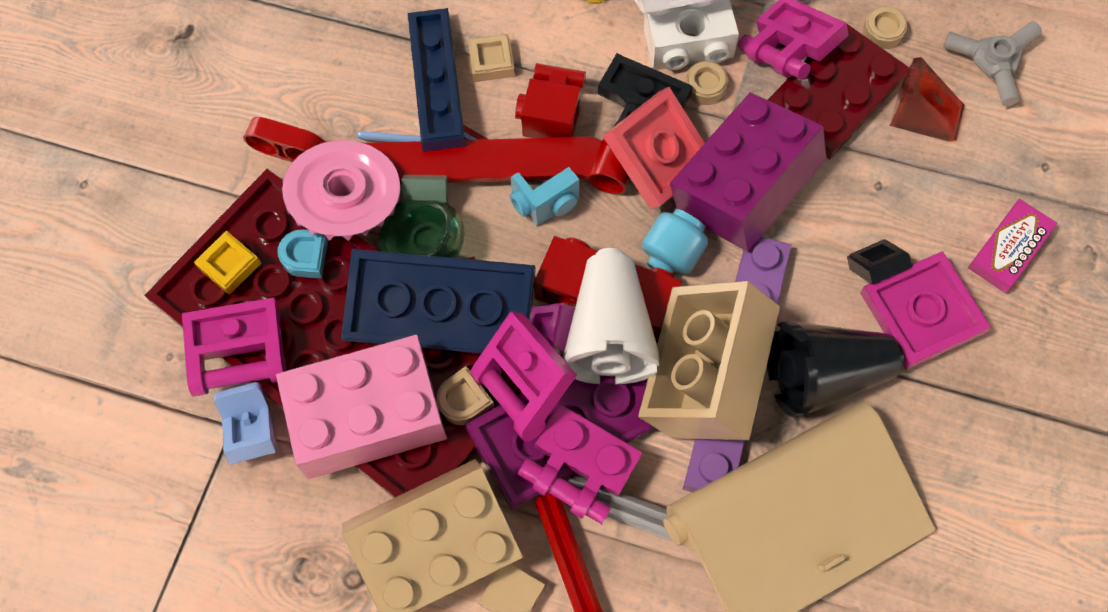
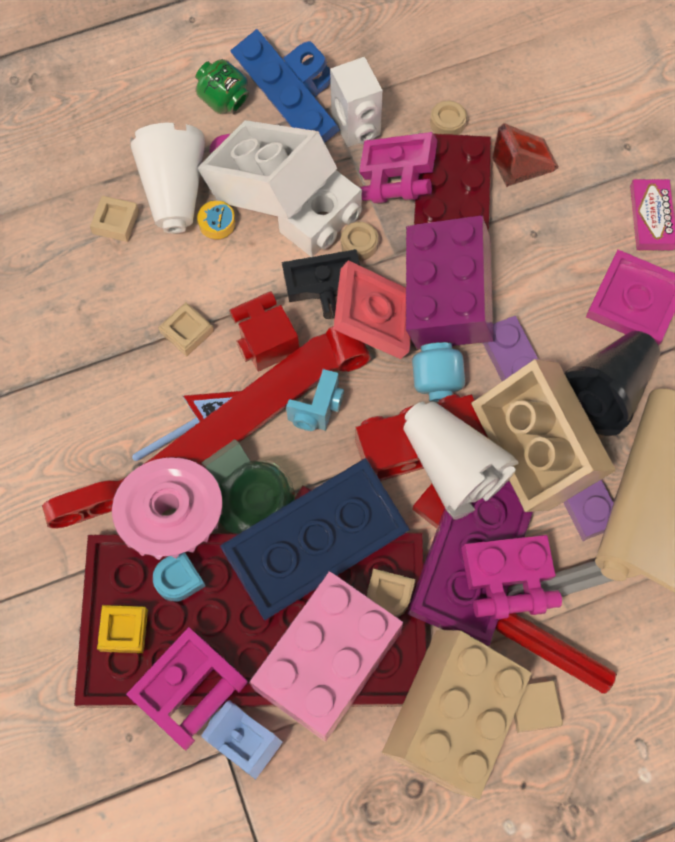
camera: 40 degrees left, 0 degrees up
(436, 80) = (161, 374): dark blue tile -> none
(532, 367) = (430, 531): dark pink plate -> none
(553, 323) = (414, 496): magenta tile -> none
(879, 261) = (582, 286): black tile -> none
(997, 56) = (539, 91): light grey piece -> none

